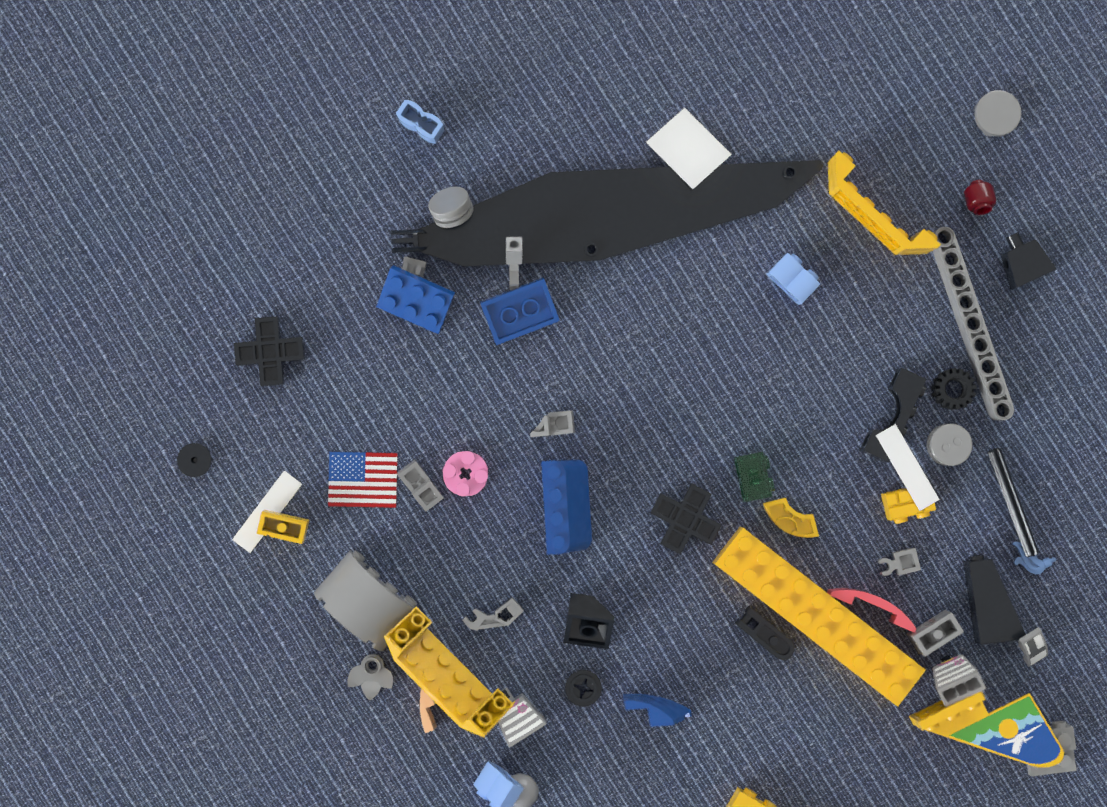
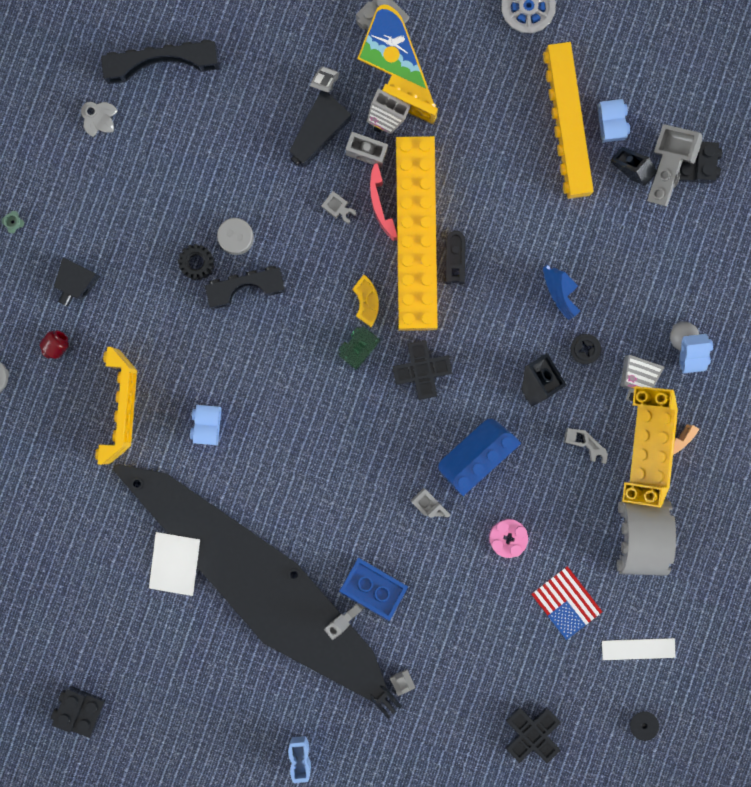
camera: 125 degrees left, 0 degrees up
(283, 526) = (641, 631): yellow brick -> none
(370, 679) = (692, 492): light grey plate -> none
(415, 299) = (421, 665): blue plate -> none
(420, 485) = (540, 562): light grey slope -> none
(451, 207) = (340, 692): light grey head -> none
(900, 505) = (294, 233): yellow brick -> none
(907, 467) = (272, 252): white sticker -> none
(979, 333) = (144, 274): light grey beam -> none
(1013, 502) = (240, 165): axle -> none
(1031, 564) = (269, 126): medium blue piece -> none

